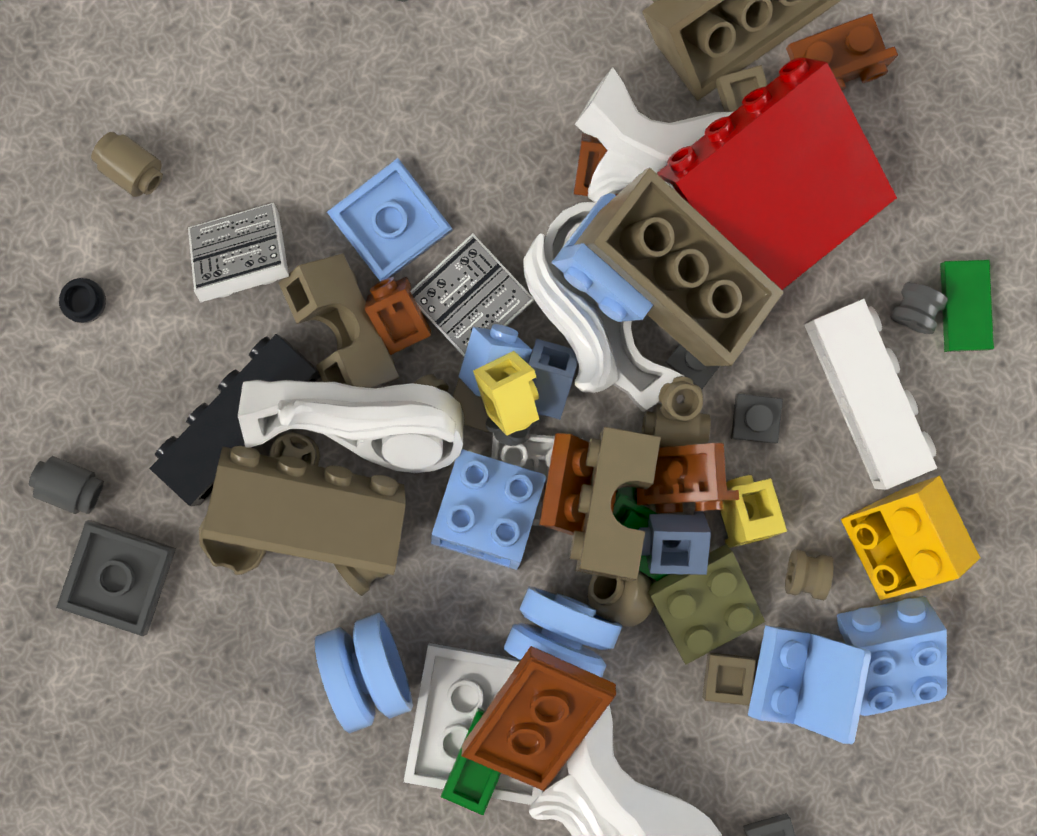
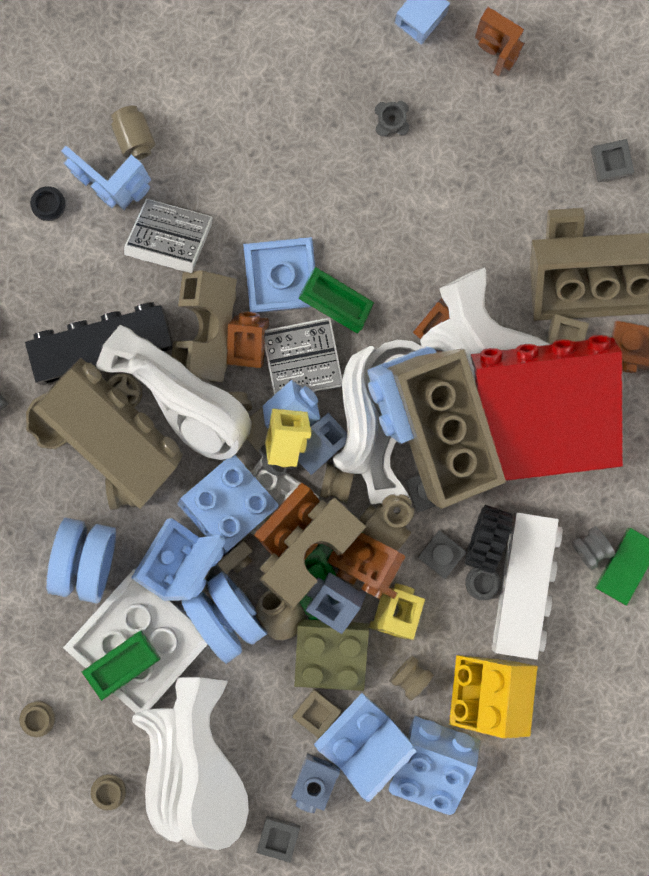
camera: 30 degrees right, 0 degrees up
(151, 232) = (125, 185): none -> light blue bracket
(468, 210) = (336, 300): none -> green tile
(474, 607) = (178, 562): none -> light blue bracket
(535, 562) = (237, 558): none -> dark tan plate
(538, 718) = (175, 659): dark orange tile -> none
(593, 411) = (336, 483): none -> dark tan wheel
(764, 746) = (317, 771): none -> sand blue brick
(801, 368) = (488, 539): none -> black tyre
(820, 421) = (482, 584): none -> dark grey plate

